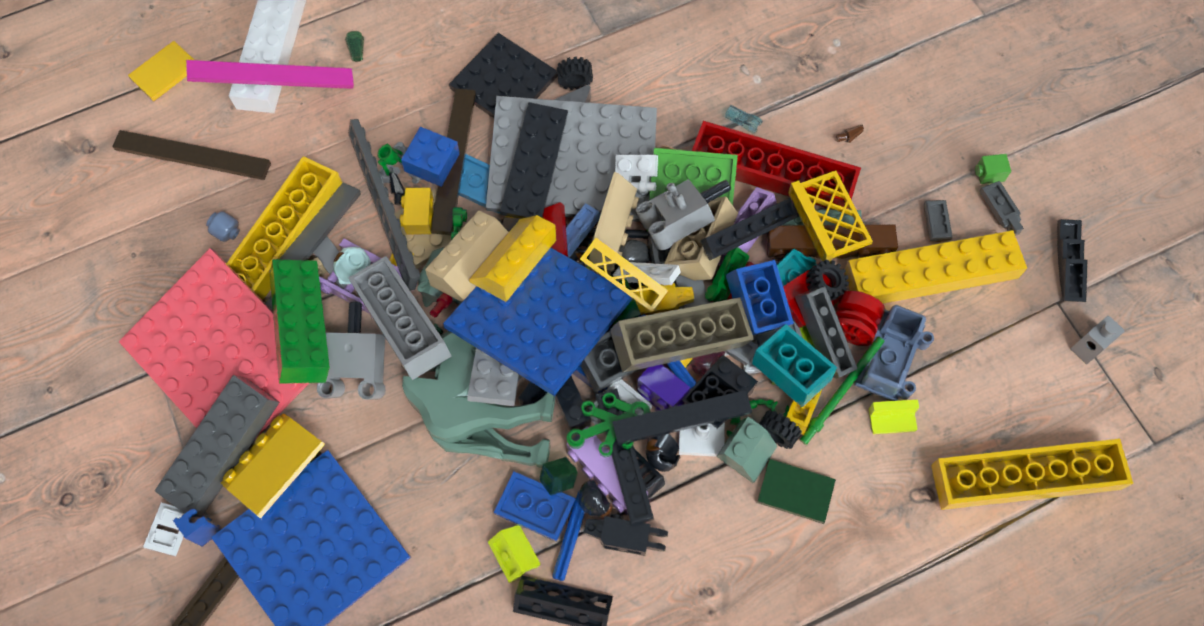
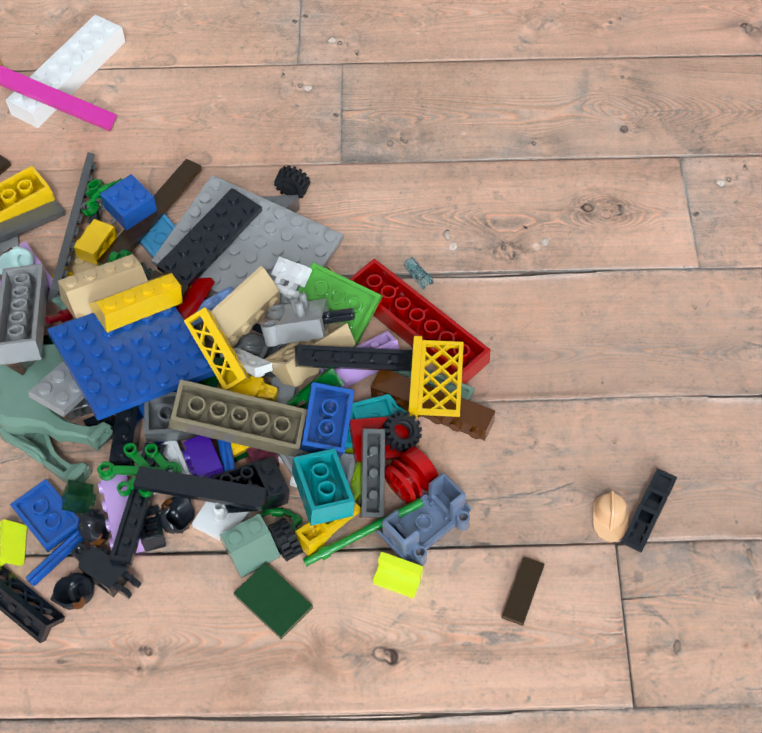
camera: 25 degrees right, 10 degrees down
(355, 45) = (131, 97): clear green cone -> none
(394, 173) = (92, 204): none -> green piece
(503, 71) = (238, 161): black plate -> none
(610, 569) = (73, 591): none -> black hair
(850, 134) = (508, 322): reddish brown bar -> none
(937, 268) = (513, 464): yellow brick -> none
(938, 220) = (542, 425): dark grey plate -> none
(993, 168) = (620, 400): bright green brick -> none
(1002, 206) = (610, 437): dark grey hinge -> none
(1007, 382) = (523, 591): none -> dark brown tile
(1031, 474) = (490, 677): yellow brick -> none
(1042, 280) = (610, 517): none -> light nougat piece
(1101, 335) = (631, 587): light grey torso -> none

